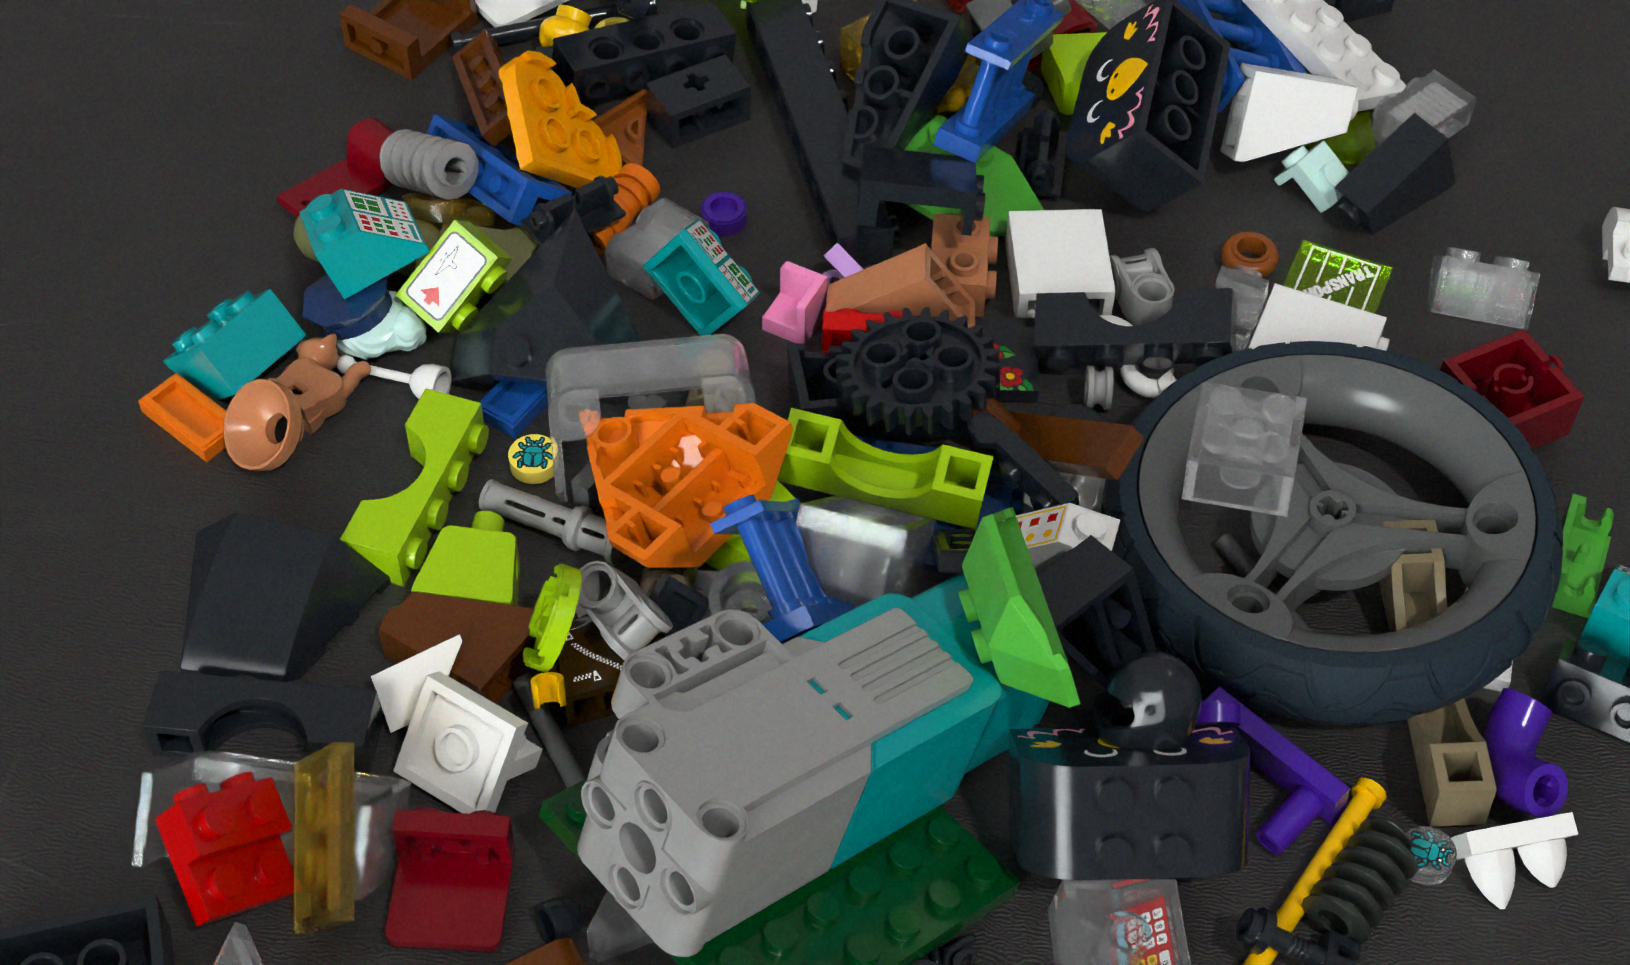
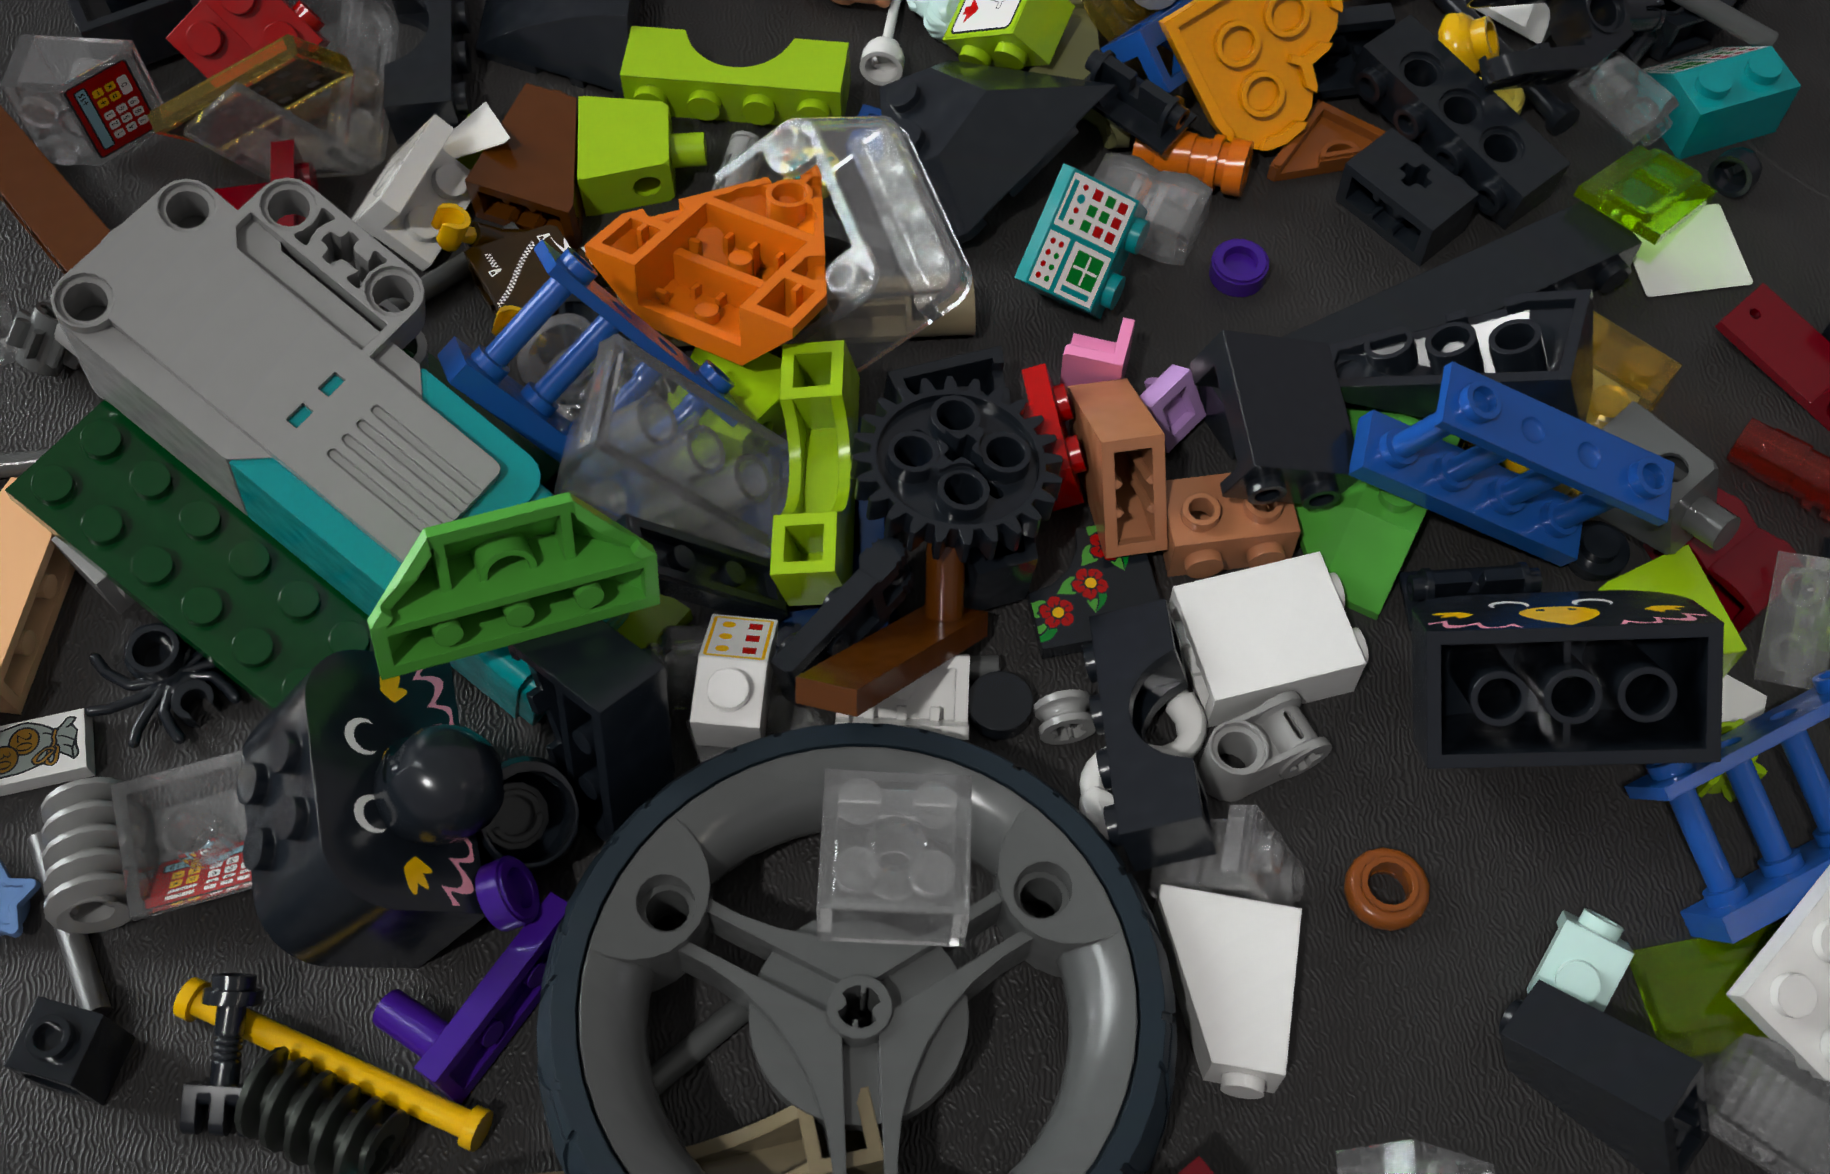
camera: 80 degrees right, 10 degrees up
(553, 617) = (532, 199): lime tile -> none
(626, 615) = (561, 227): light grey piece -> none
(1285, 111) = (1669, 890): white slope -> none
(1338, 276) = (1363, 1015): clear neon green tile -> none

